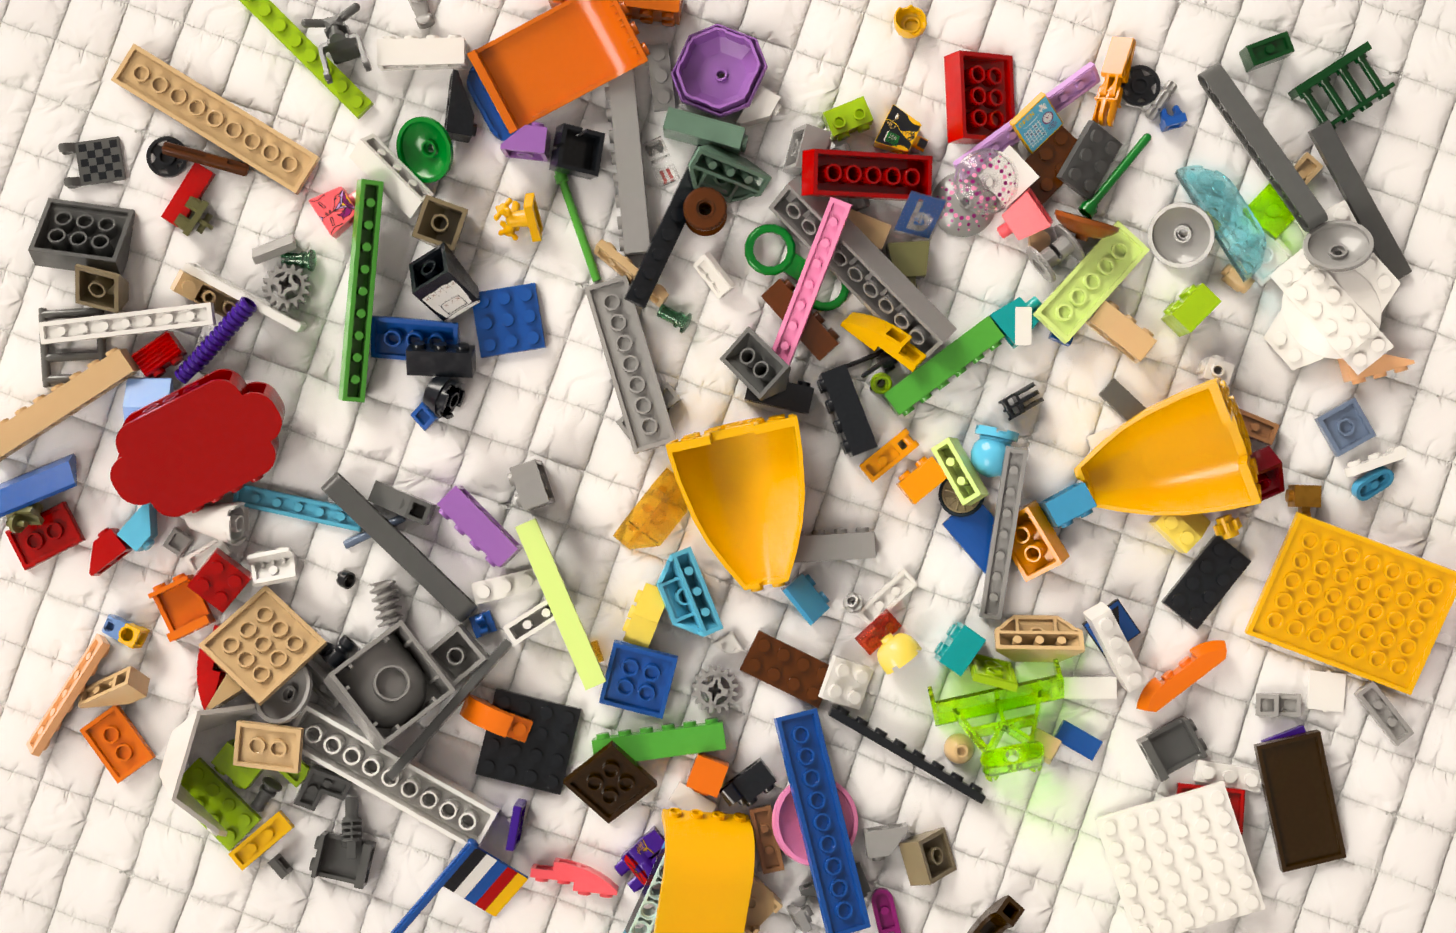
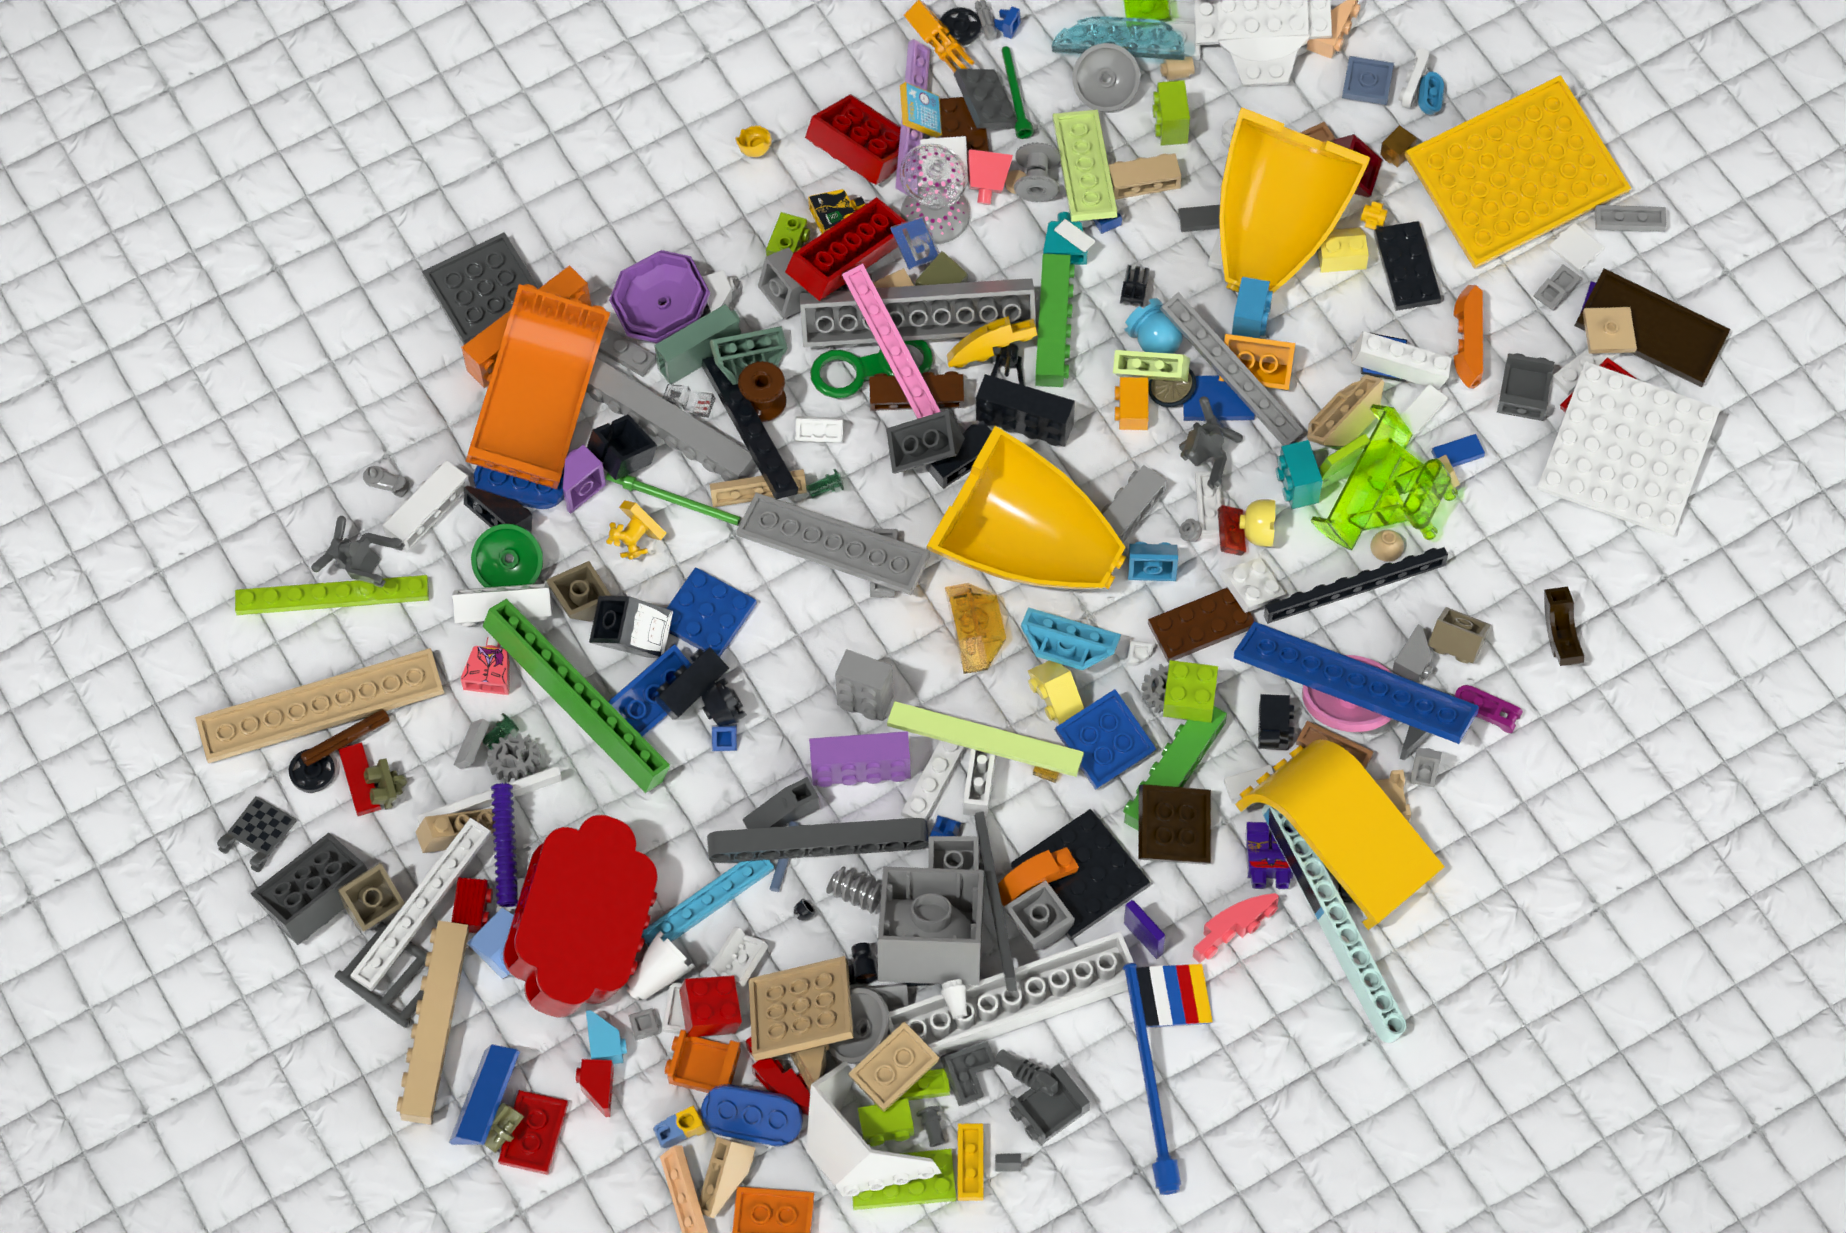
camera: 45 degrees left, 25 degrees down
(170, 672) = (752, 1115): none -> blue tile
(352, 745) = (955, 997): none -> white cone
(465, 746) = (1040, 916): none -> light grey brick
(707, 774) = (1235, 747): orange head -> none
(716, 715) = (1190, 691): none -> lime brick
(887, 383) = (1025, 368): lime plate -> none
(888, 456) = (1090, 415): light orange plate -> none
(932, 560) = (1207, 442): none -> dark grey piece
(1085, 227) = (1034, 129): dark orange dish -> none
(1268, 776) = (1609, 330): none -> tan plate

